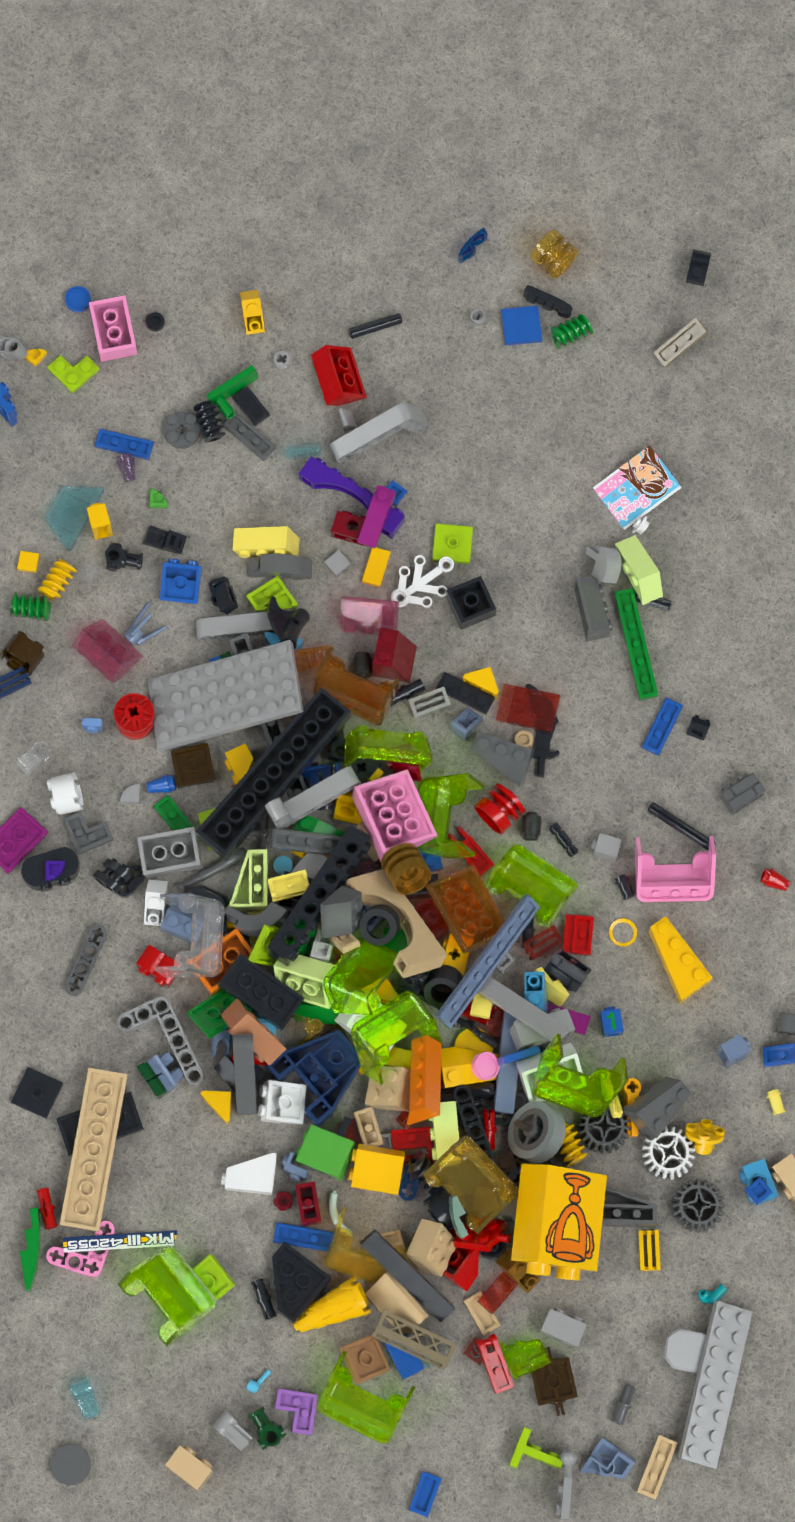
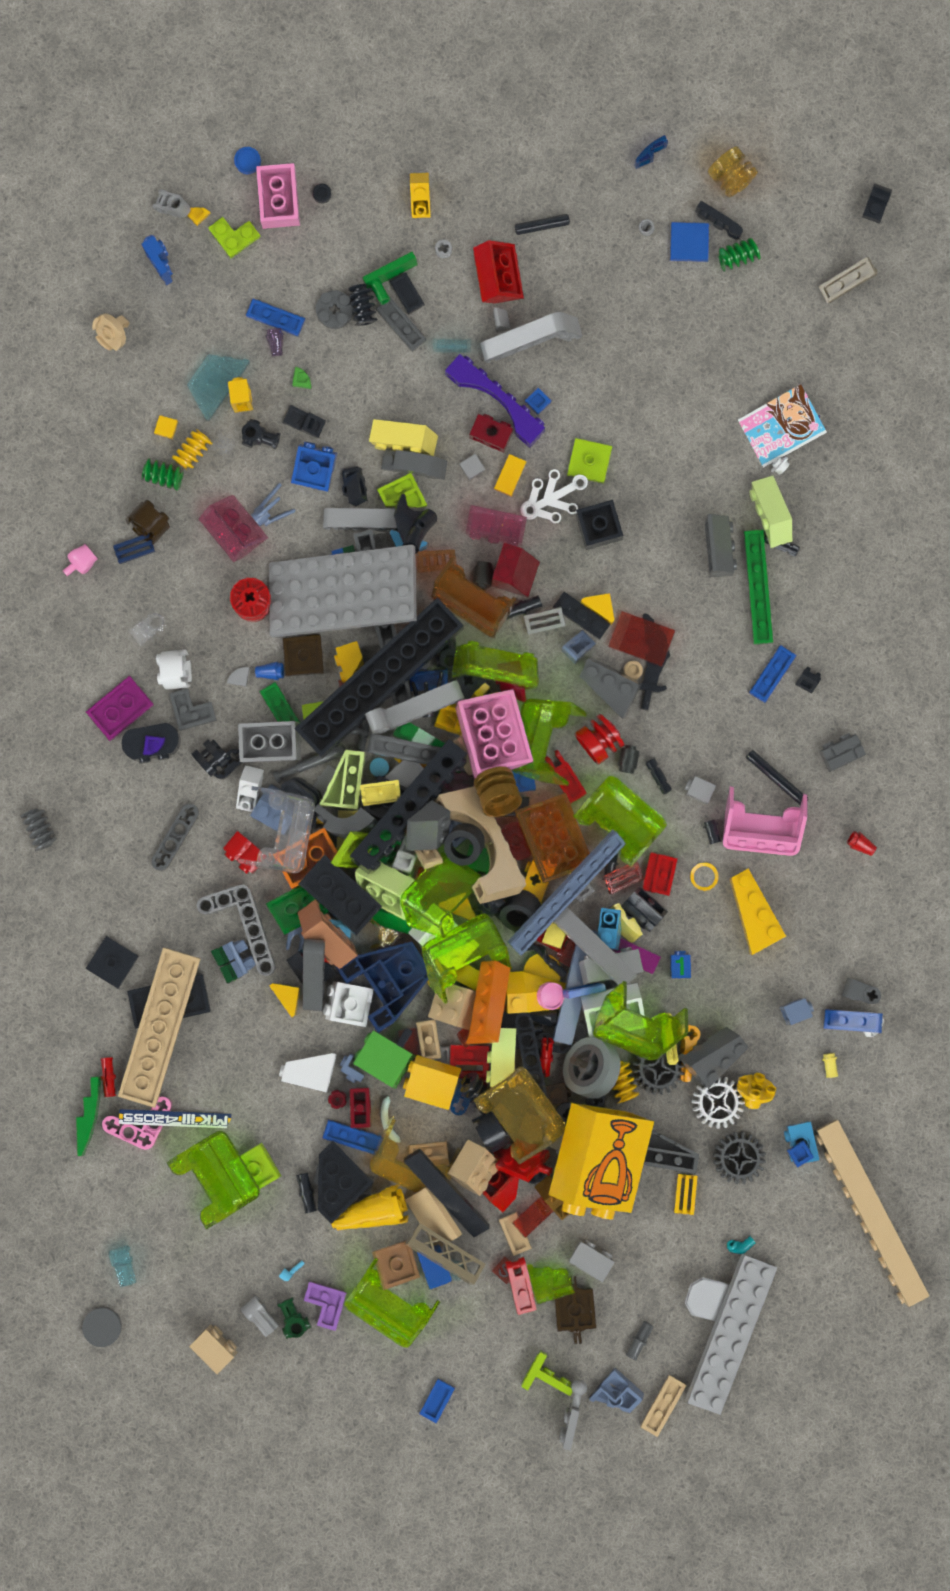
camera: 15 degrees right, 10 degrees up
(92, 725) = (209, 603): medium blue plate -> none
(376, 516) = (516, 425): magenta slope -> none
(456, 1210) = (501, 1141): sand green slope -> none
(607, 564) = (741, 501): light grey brick -> none

